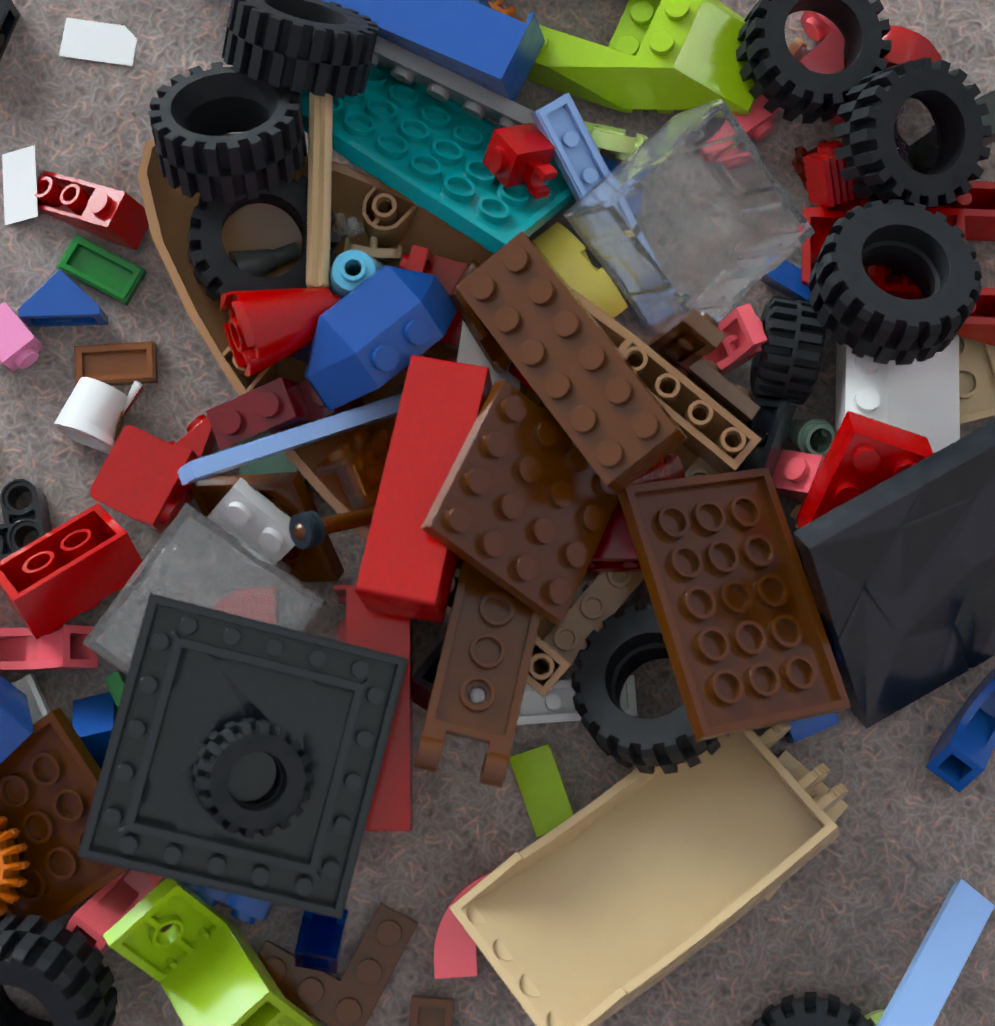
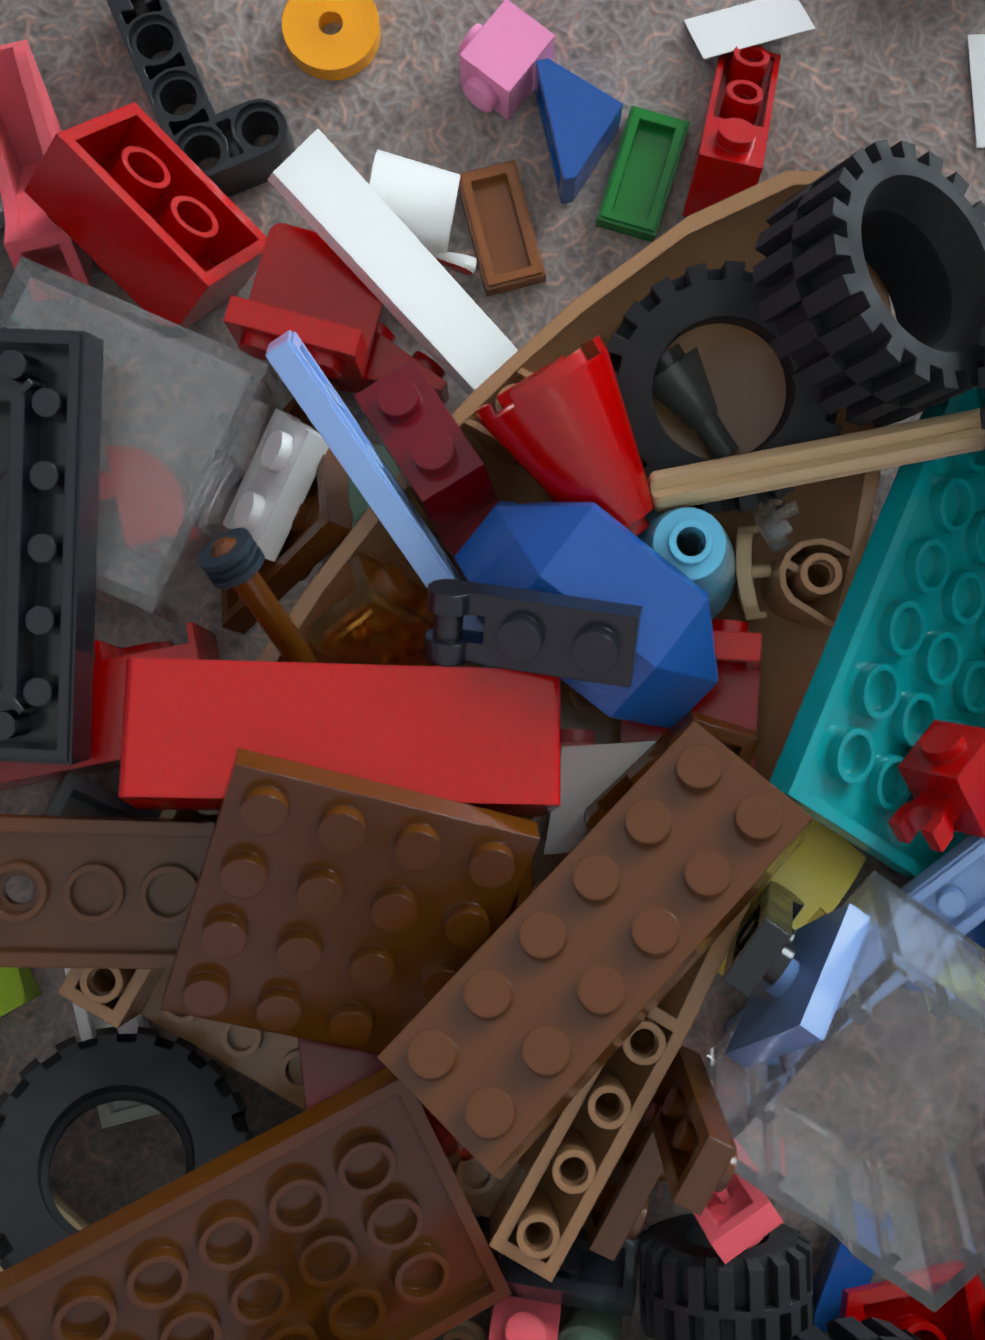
camera: 85 degrees right, 5 degrees up
(139, 420) = (391, 262): none -> white tile
(387, 362) = (533, 632): none -> black plate
(588, 278) = (763, 940): none -> black plate
(619, 266) = (806, 995): none -> medium blue plate

